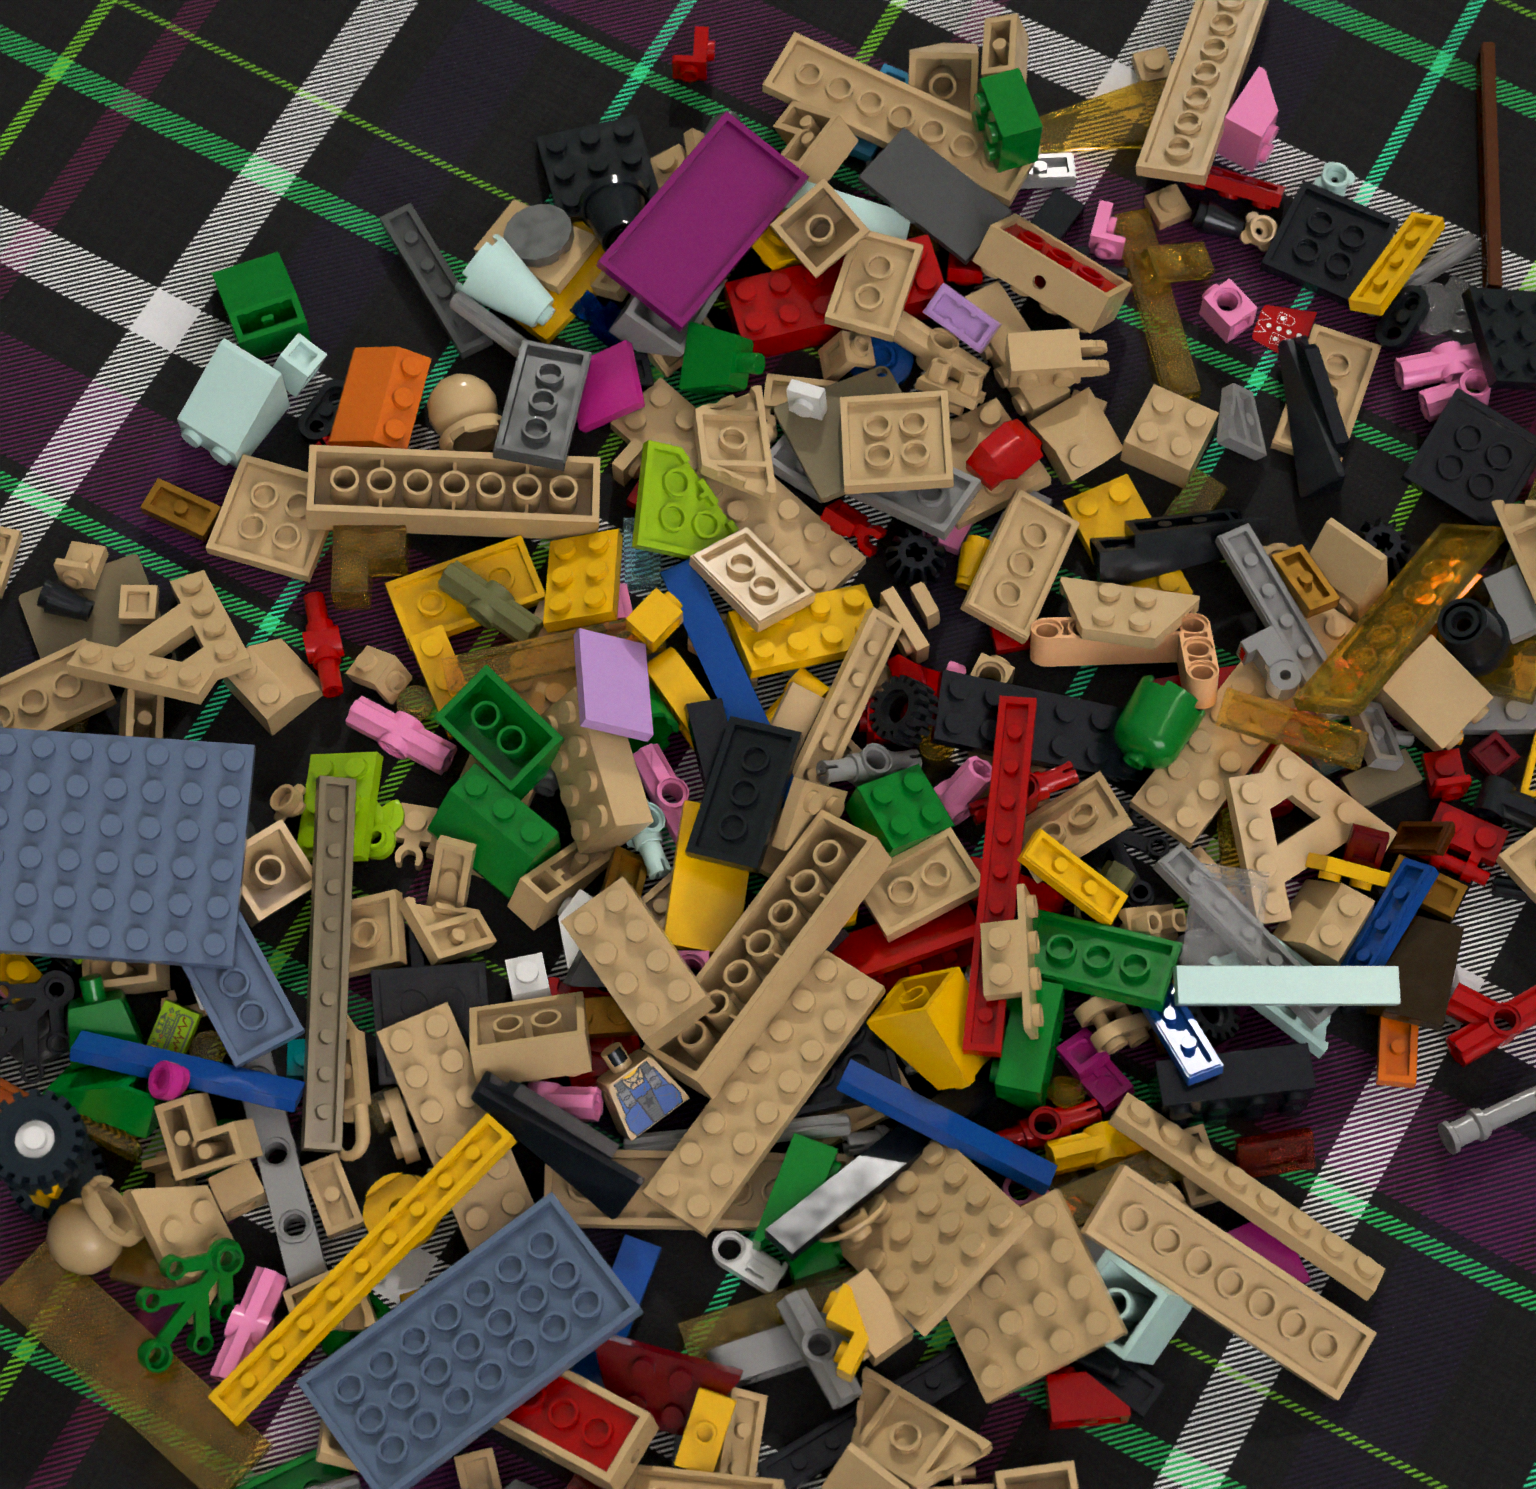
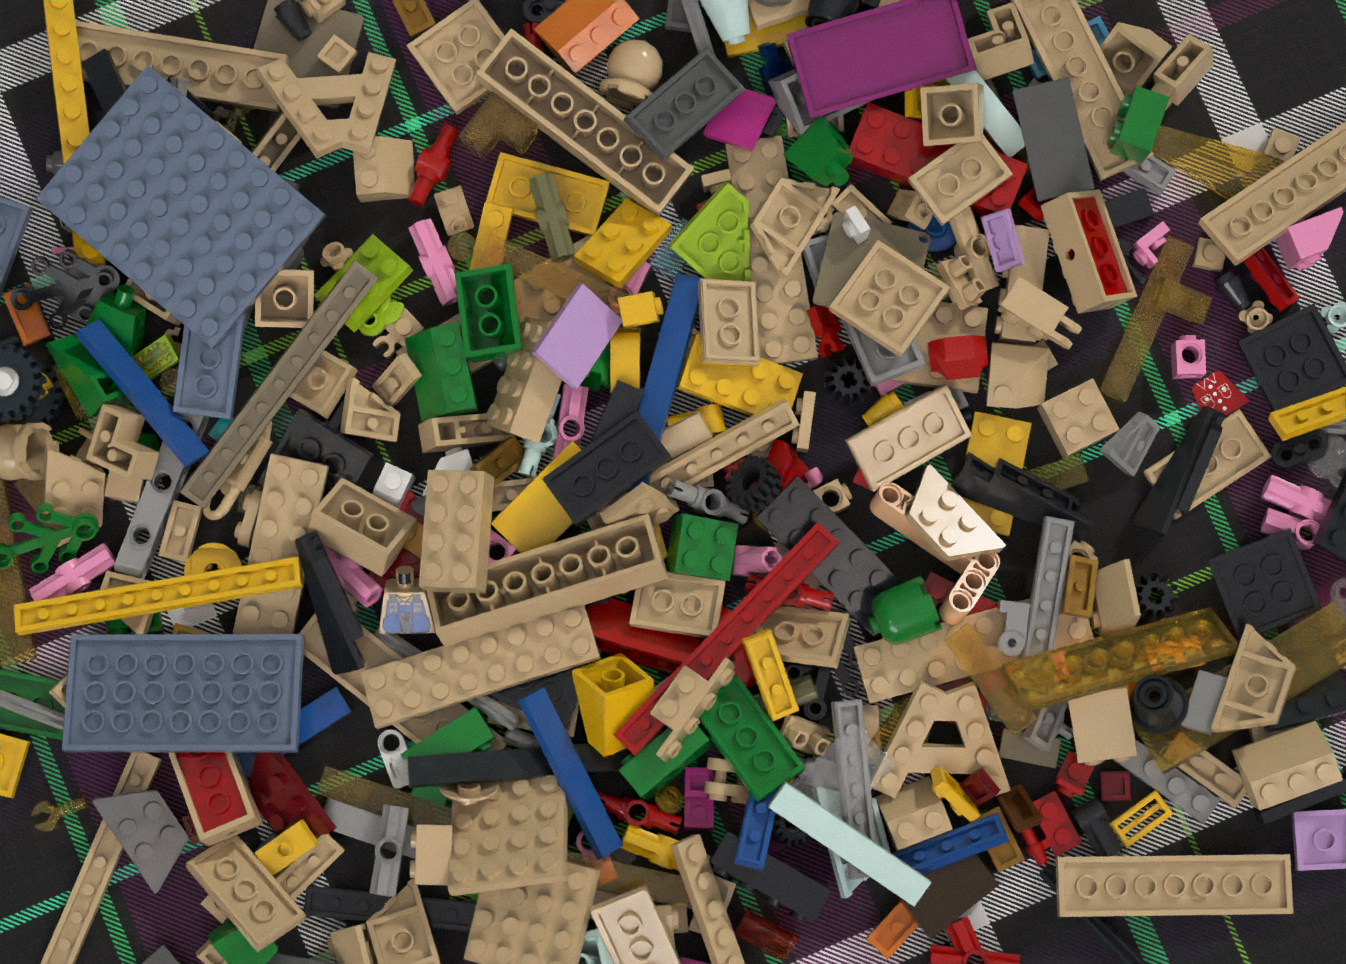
camera: 40 degrees right, 15 degrees up
(168, 1080) = (120, 395): dark pink tile -> none
(845, 1319) = (411, 850): yellow slope -> none
(925, 605) = (829, 418): tan tile -> none

